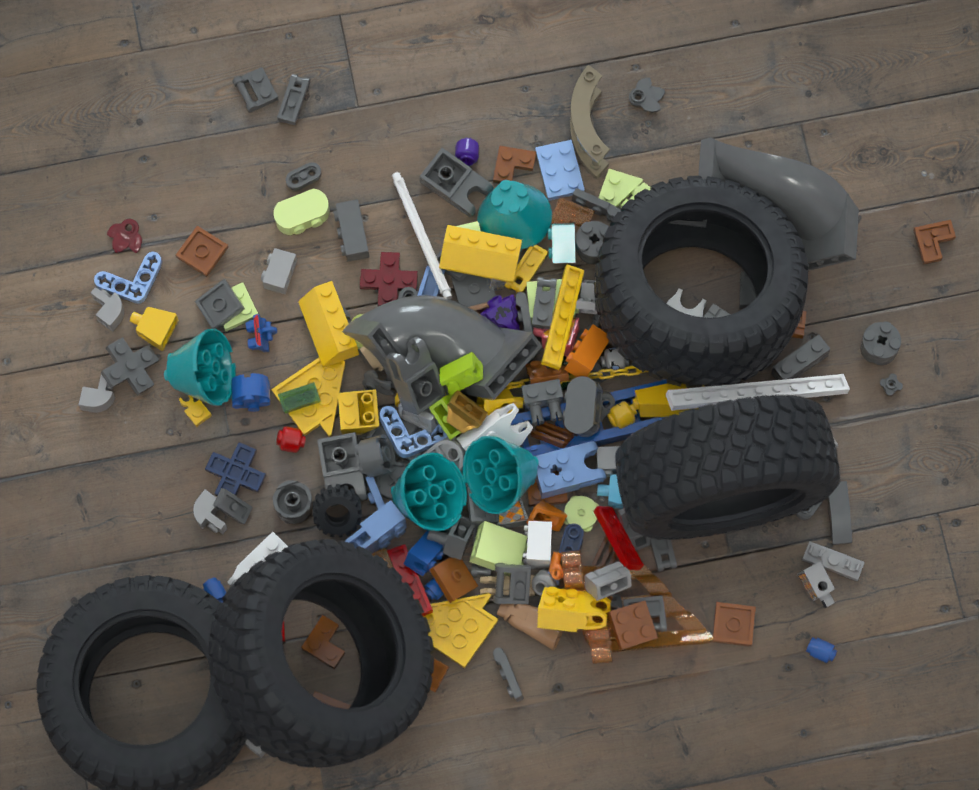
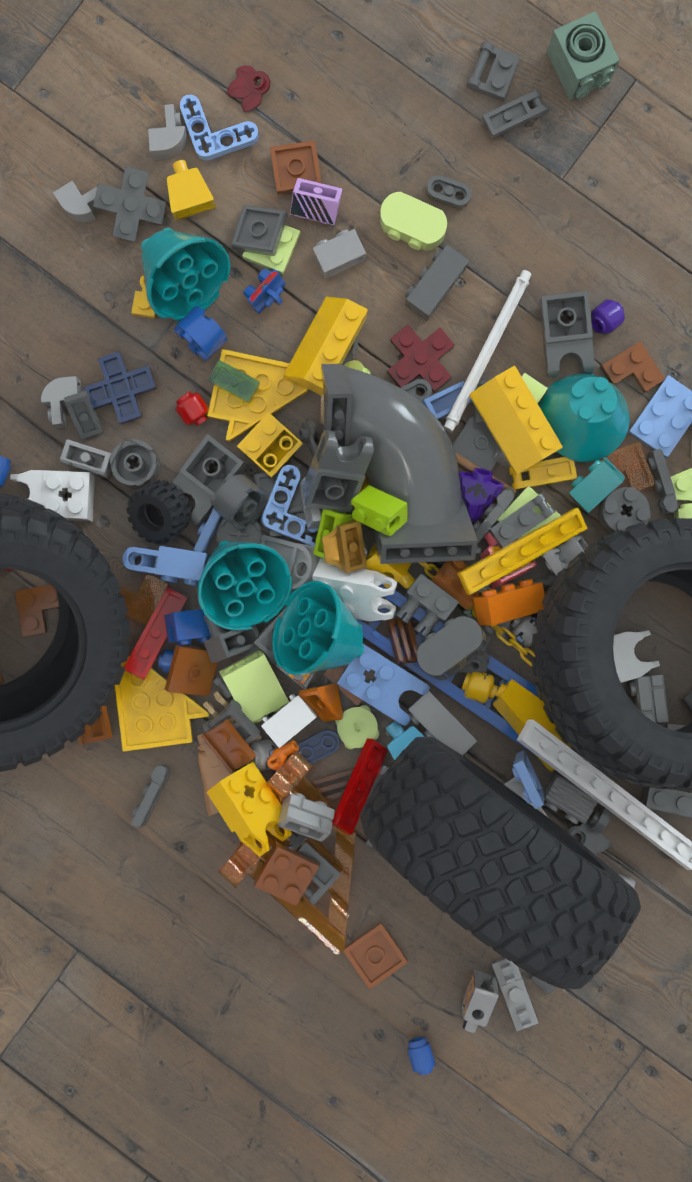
camera: 50 degrees right, 15 degrees up
(235, 256) = (315, 201): none -> lavender brick
(261, 527) = (86, 458): none -> light grey brick
(298, 32) = (582, 56): none -> sand green brick
(521, 593) = (228, 745): none -> dark orange plate

